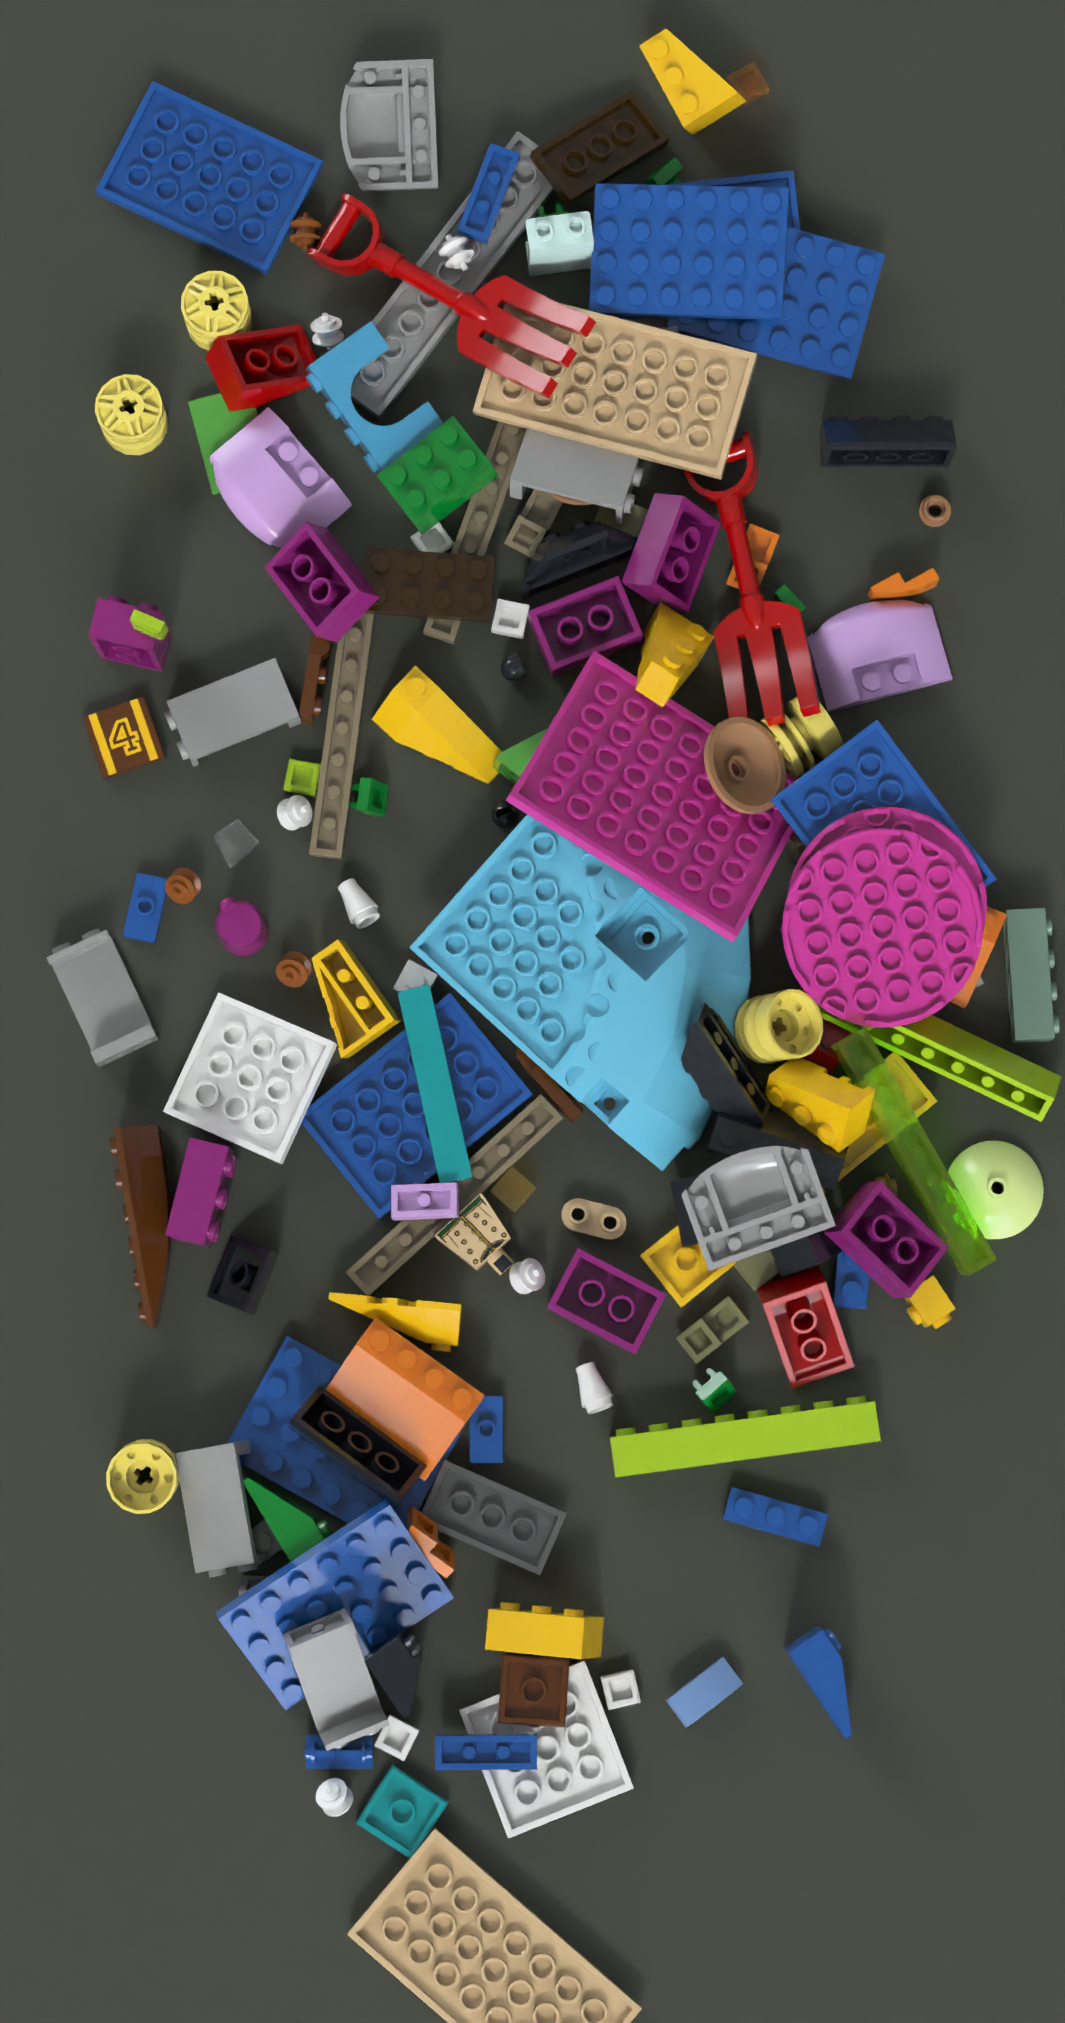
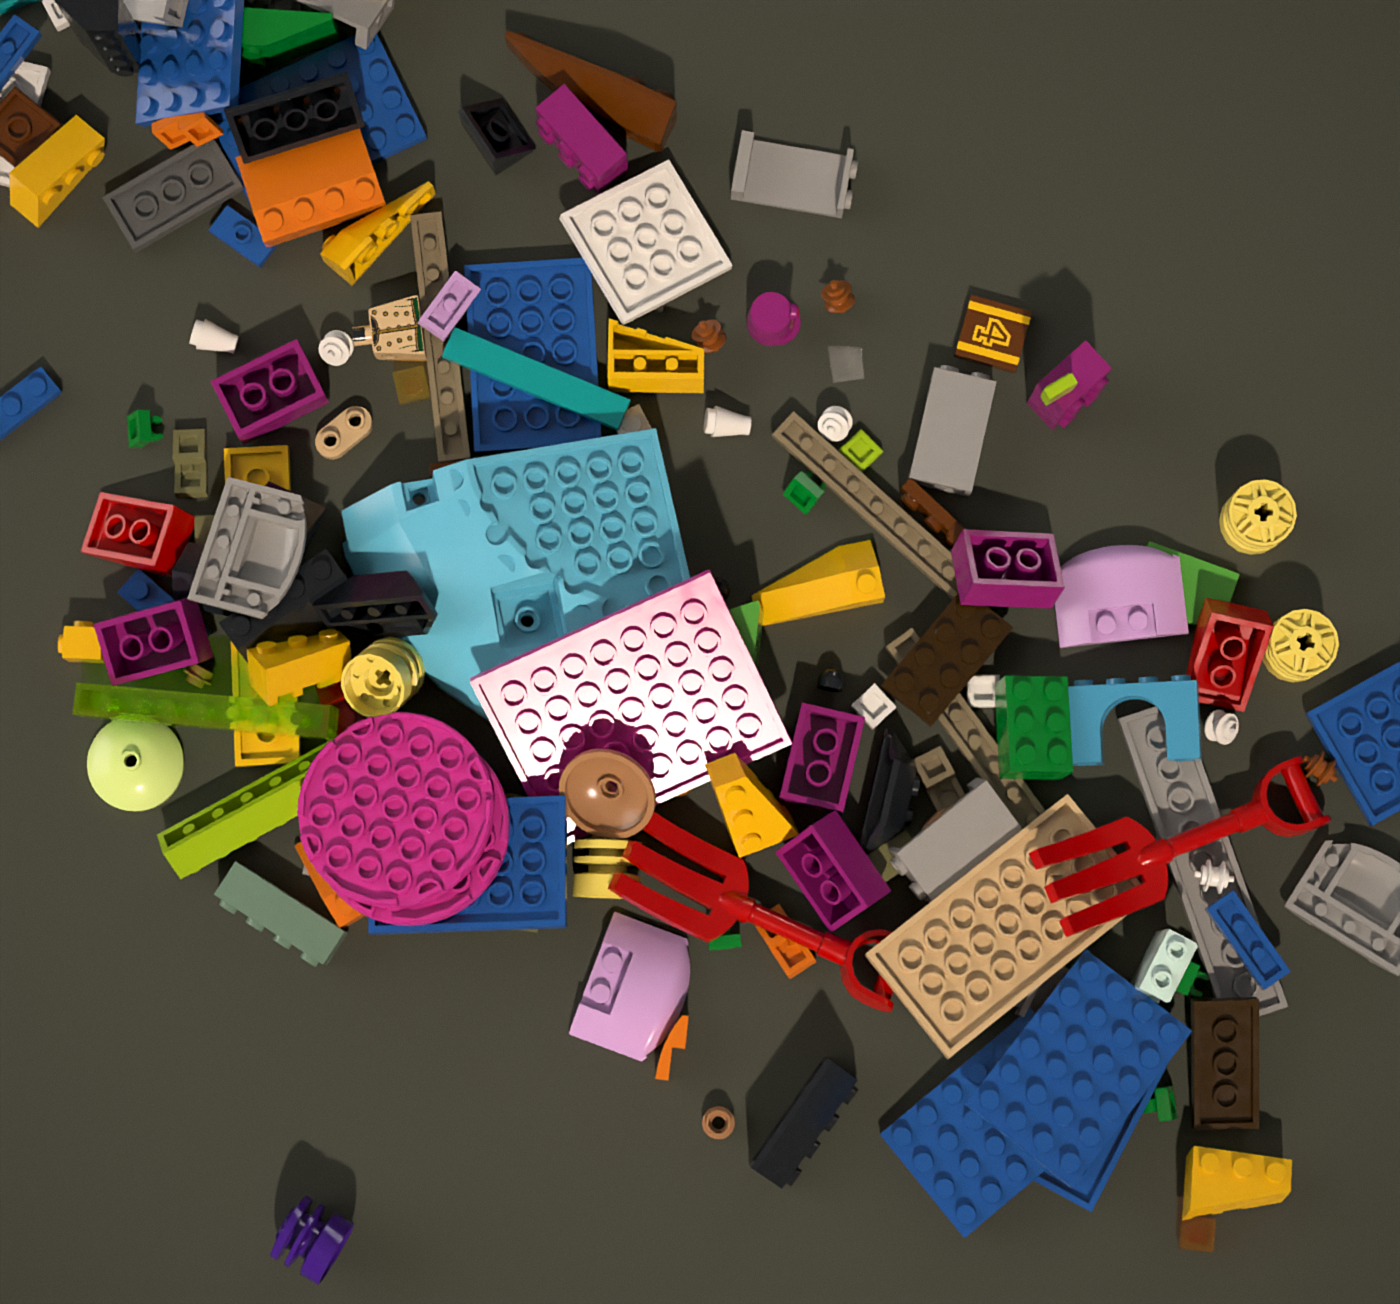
camera: 125 degrees right, 0 degrees up
(145, 908) = (841, 257): blue plate -> none
(744, 1438) = (88, 425): lime brick -> none

